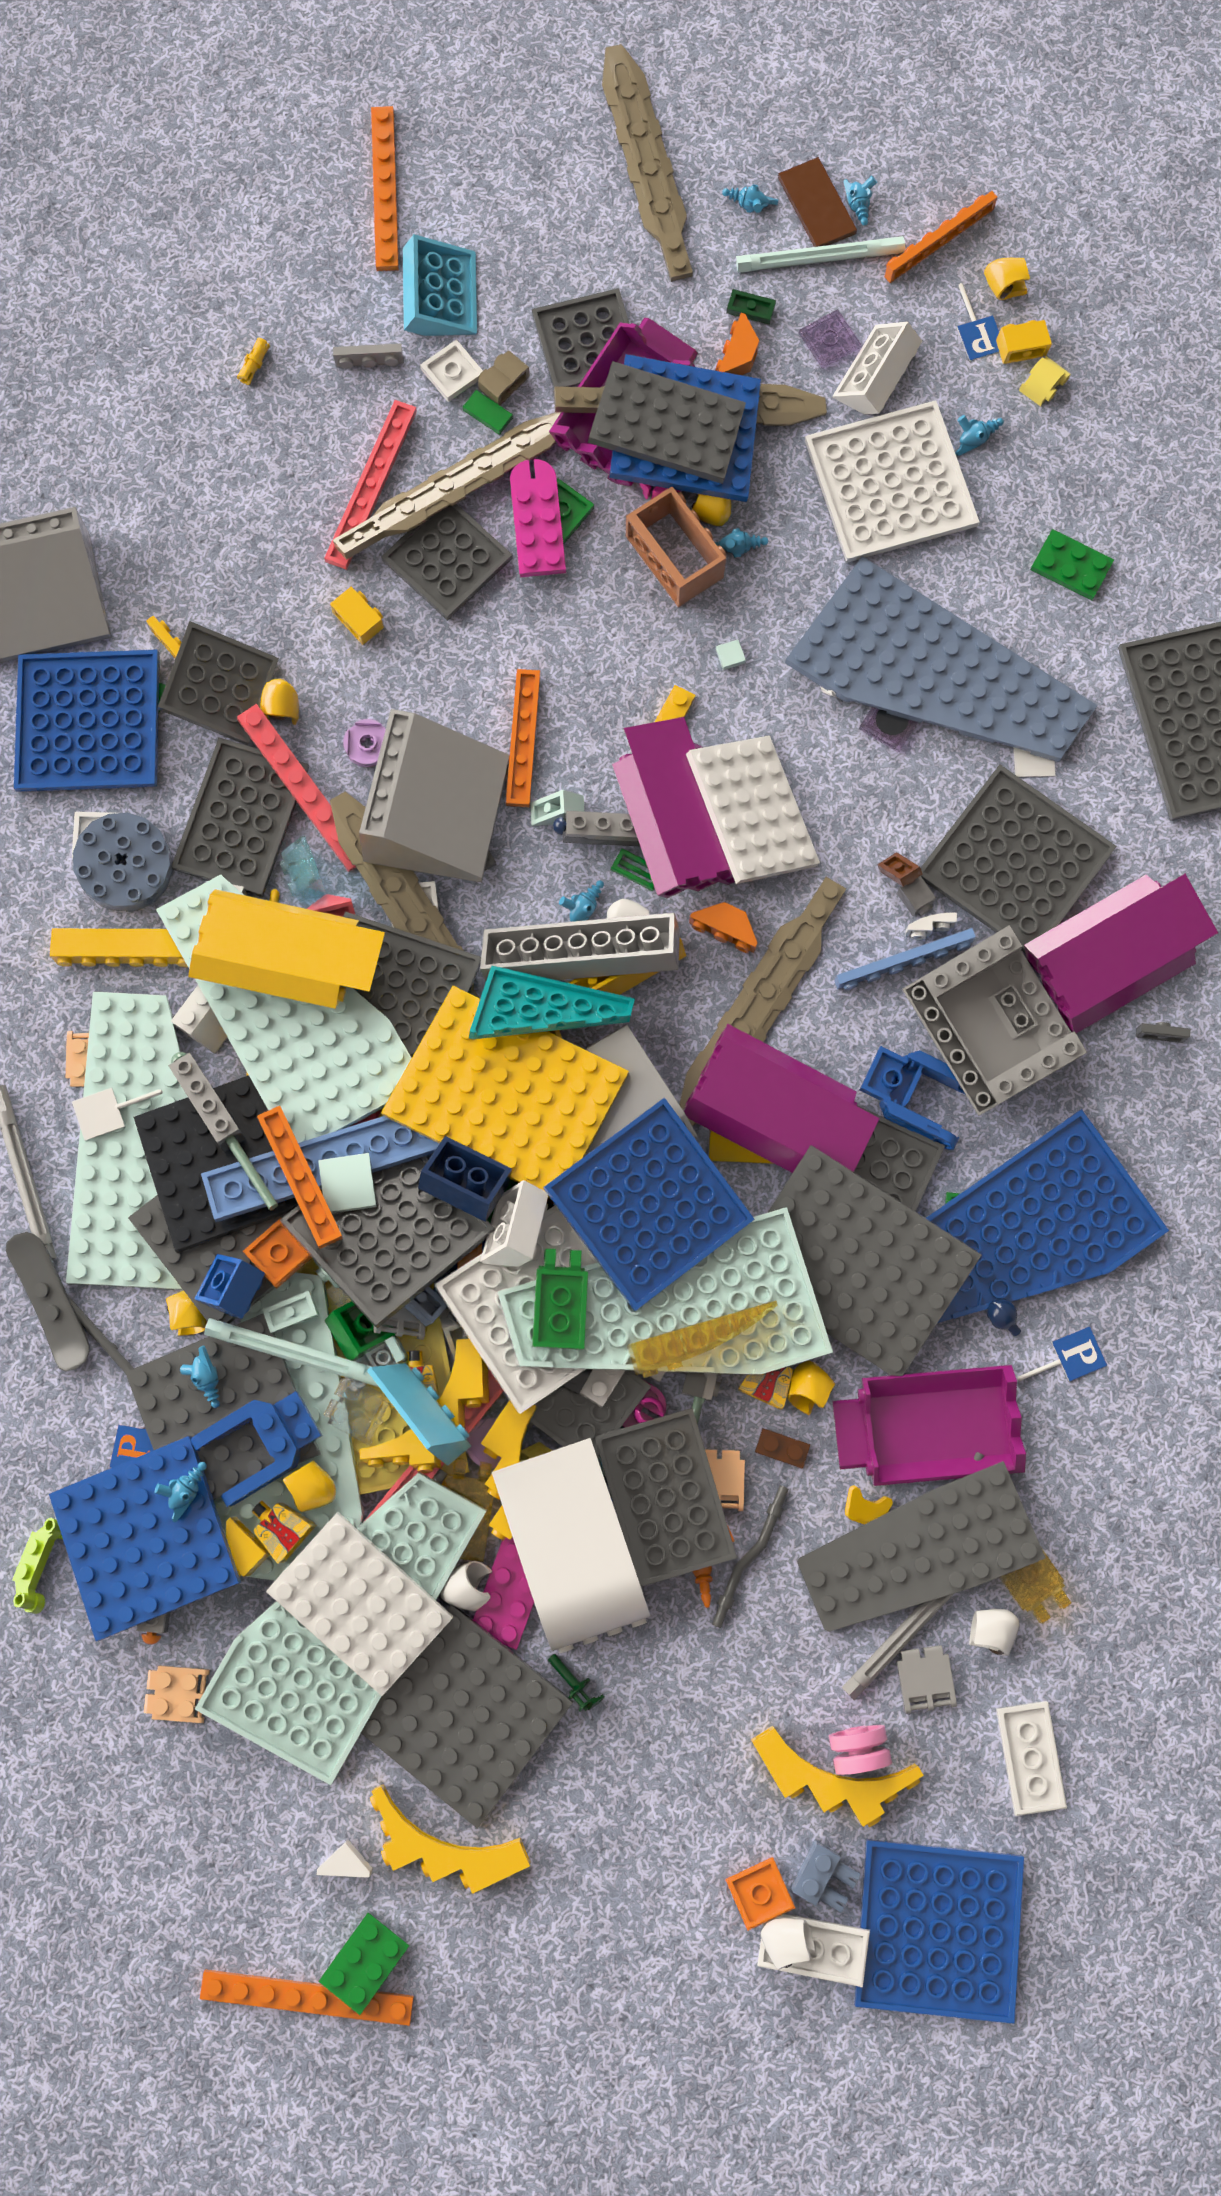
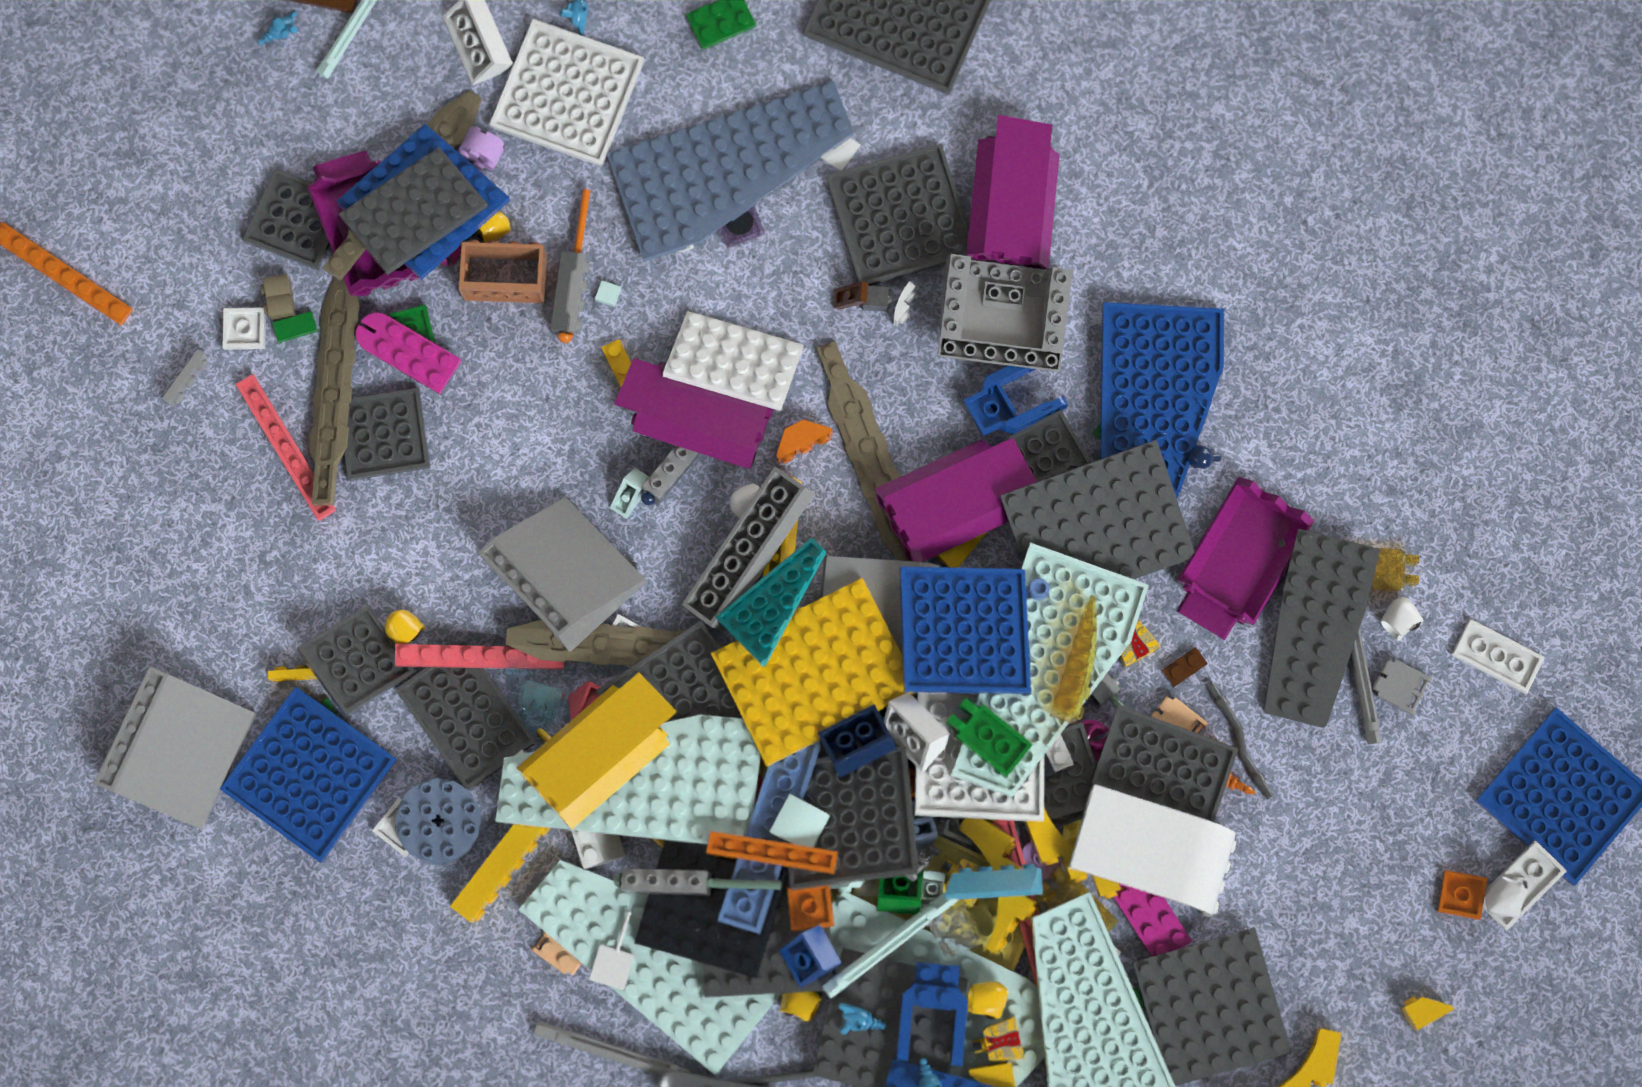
camera: 55 degrees left, 0 degrees up
(253, 361) = (123, 462): yellow pin -> none
(290, 1312) = (856, 929): light aqua plate -> none
(356, 735) = (481, 600): lavender plate -> none
(357, 615) = (379, 527): yellow brick -> none
(359, 1604) = (1090, 1022): white plate -> none
(439, 288) = (173, 292): medium azure slope -> none
(462, 1586) = (1127, 947): white piece -> none
(523, 738) = (559, 478): orange plate -> none
(575, 1684) = (1243, 918): dark green piece -> none
(584, 904) = (712, 525): dark azure piece -> none
(613, 1937) = (1423, 1011): none -> yellow slope
(646, 158) = (189, 76): dark tan plate -> none
(650, 886) = (711, 480): green tile -> none
(714, 614) = (571, 282): none -> piece
(740, 542) = (532, 226): dark azure piece -> none
(741, 349) = (389, 120): orange slope -> none
(745, 1247) = (1038, 589): none -> medium blue tile
(754, 306) = (362, 89): dark green plate -> none
(776, 444) = (481, 148): none -> lavender brick
(809, 1387) = (1157, 616): yellow piece -> none
(816, 1870) = (1475, 849): sand blue brick -> none
(829, 338) = (428, 54): clear purple tile -> none
(829, 1790) = (1446, 782): yellow arch -> none
(860, 1749) = (1417, 760): bright pink wheel -> none
(863, 1510) = (1264, 643): yellow piece -> none
(895, 963) = (913, 348): medium blue plate -> none
(1077, 1355) = (1260, 429): blue piece -> none
(1162, 1031) = (1089, 210): dark grey plate -> none

